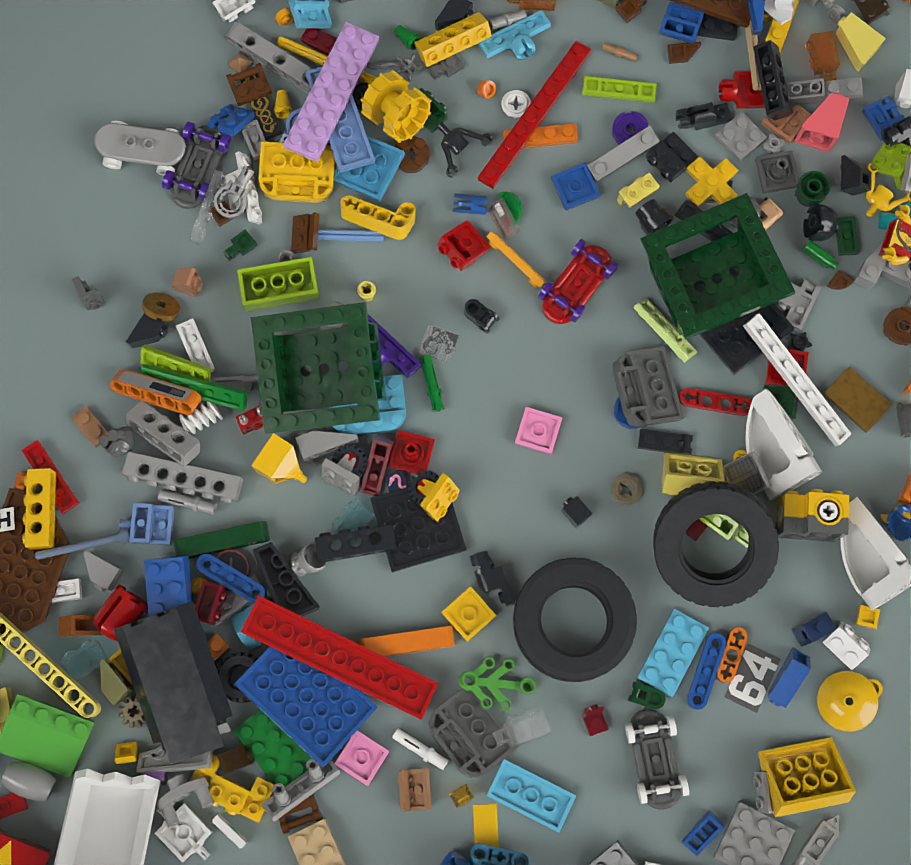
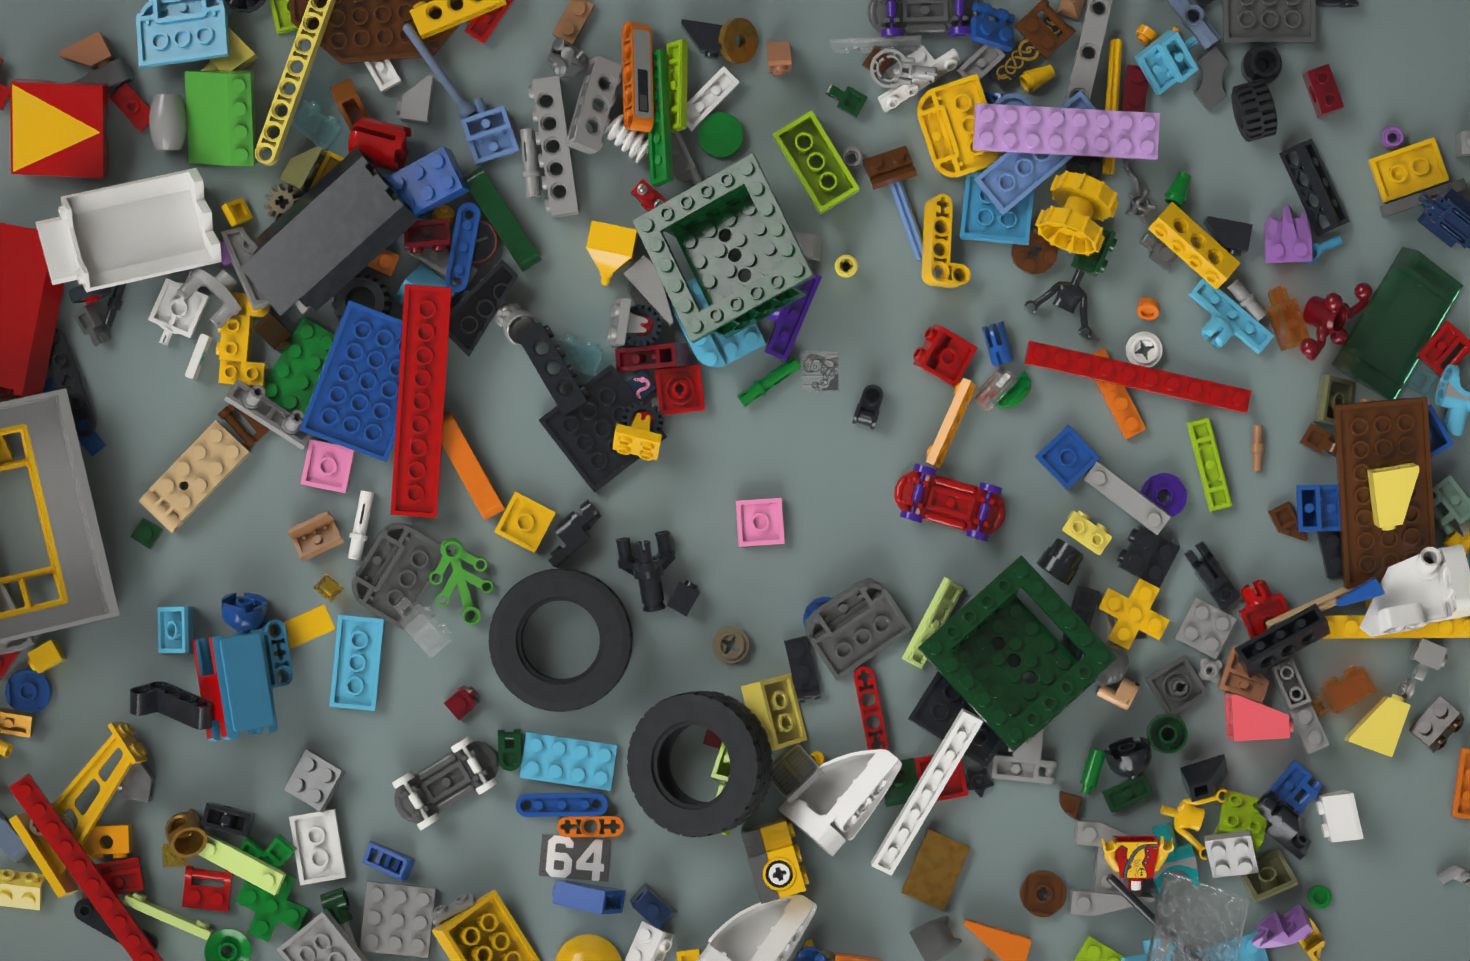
camera: 70 degrees right, 10 degrees up
(227, 349) = (720, 135): none -> green tile
(542, 530) = (647, 567): none -> black wheel

